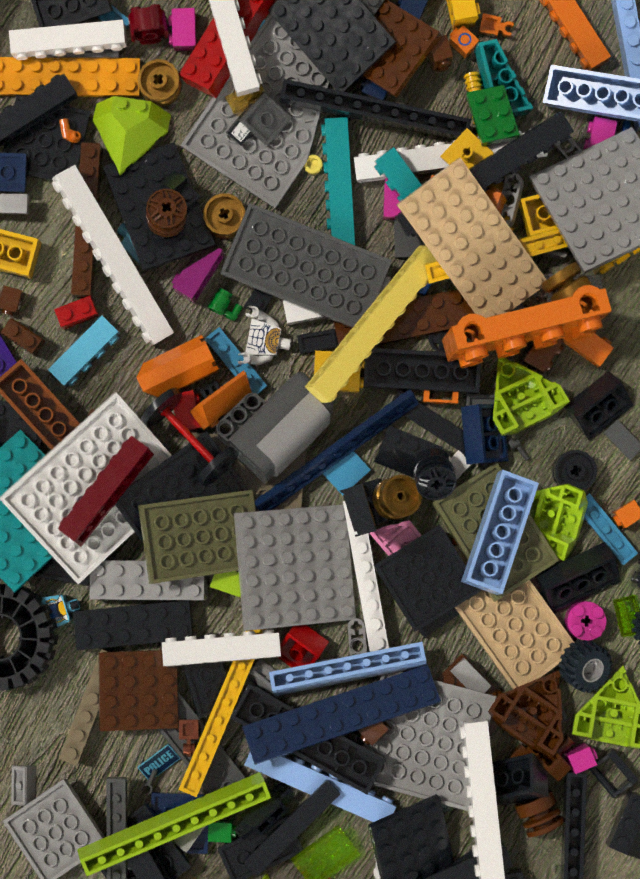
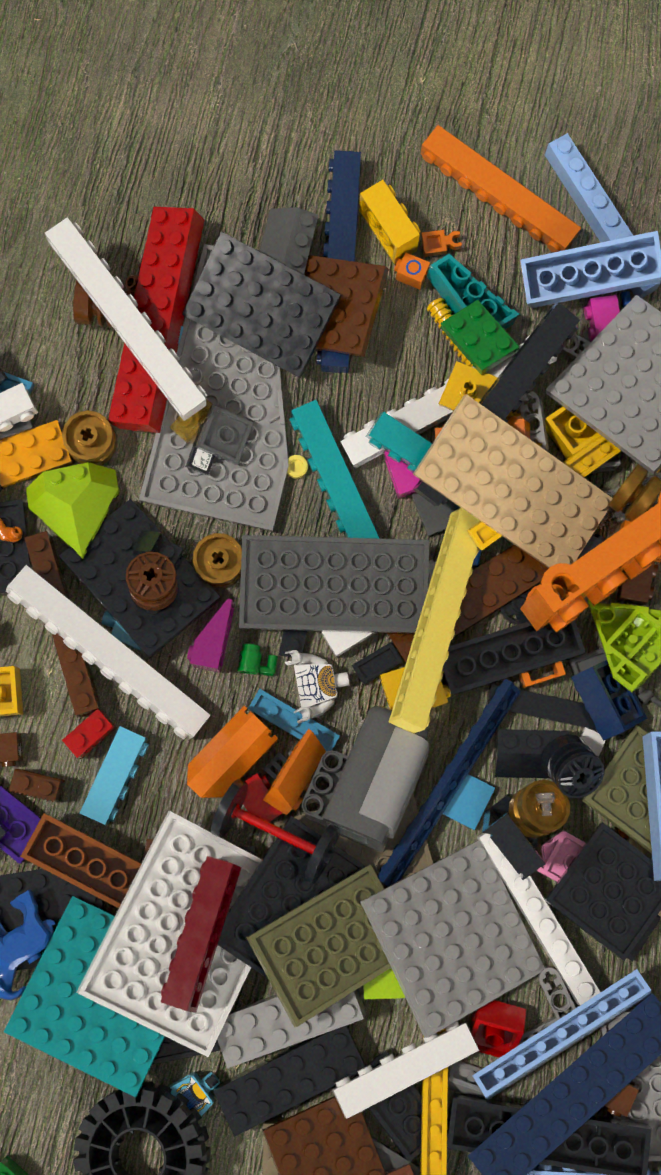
camera: 25 degrees left, 5 degrees down
(148, 24) = (52, 378): dark red brick -> none
(183, 29) = (95, 370): dark pink brick -> none
(373, 110) = (342, 381): black brick -> none
(403, 491) = (545, 800): none -> clear piece
(441, 55) = (395, 294): reddish brown brick -> none

